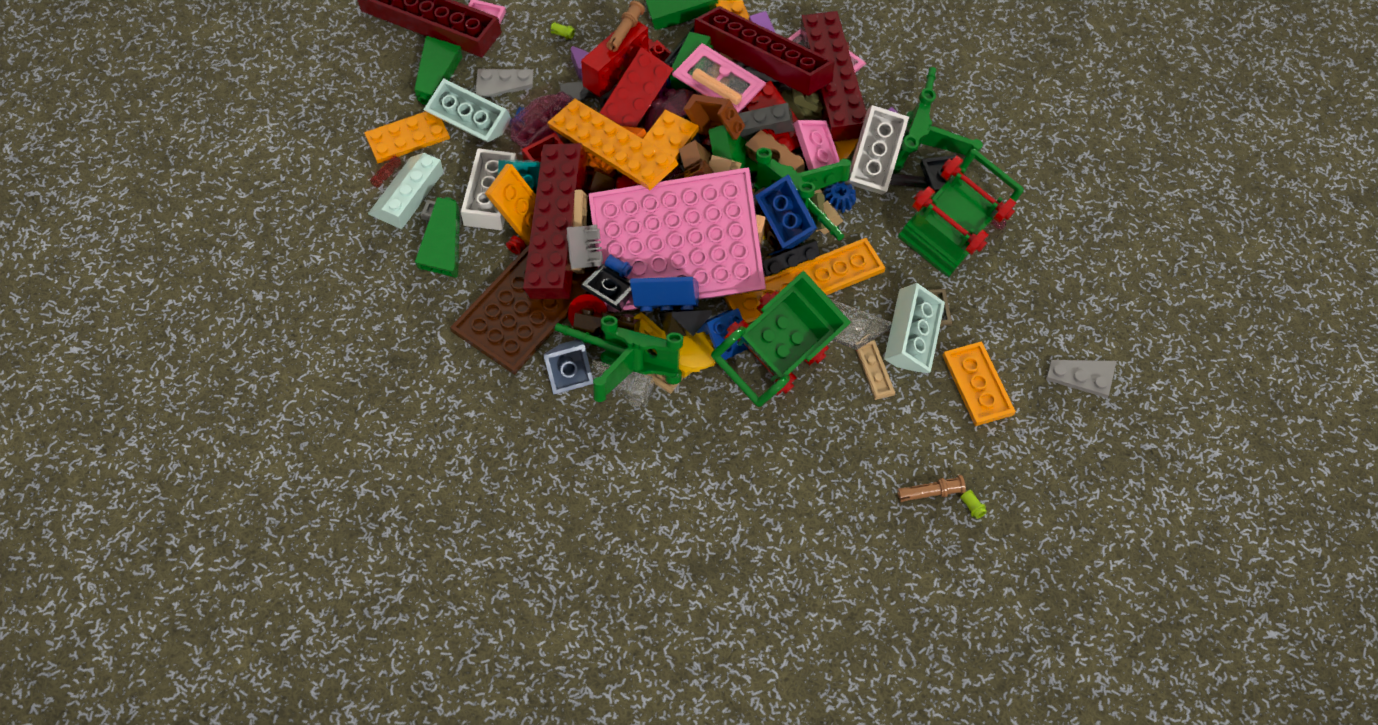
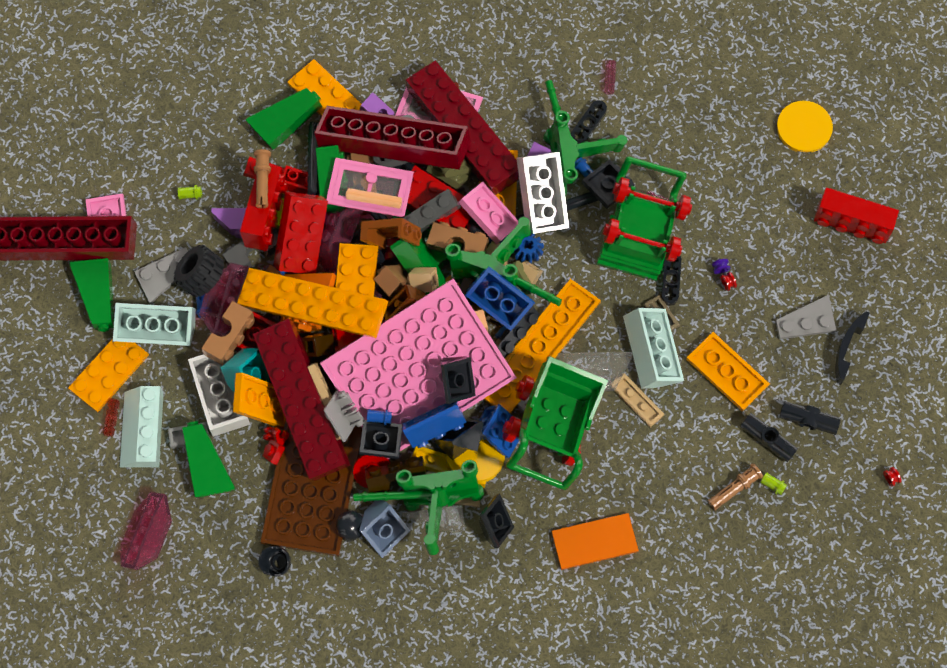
camera: 25 degrees left, 10 degrees up
(356, 273) = (146, 532): none -> clear pink wedge
(449, 344) = (269, 556): none -> black hair
(509, 256) = (275, 448): none -> red plate
(512, 148) = (222, 348): none -> medium nougat arch
(530, 86) = (198, 270): none -> black tyre
(535, 348) = (348, 525): none -> black hair
(677, 406) = (496, 522): none -> black slope
(707, 261) = (457, 379): none -> black slope
(764, 474) = (594, 541): none -> orange tile
(927, 151) = (583, 167): none -> blue pin
(957, 116) = (589, 116): none -> black beam
(964, 273) = (675, 292): none -> black beam
(993, 95) = (610, 77): none -> clear pink axle
(995, 470) = (779, 445): none -> black piece
(1019, 290) = (721, 266): none -> dark purple bush
(1020, 305) = (728, 281): none -> red bush
(1042, 461) = (810, 417): none -> black piece
(1102, 554) = (892, 476): none -> red bush
(1130, 400) = (841, 365): none -> black slope
(1164, 210) = (804, 126): none -> yellow tile
(1178, 300) = (856, 216): none -> red brick

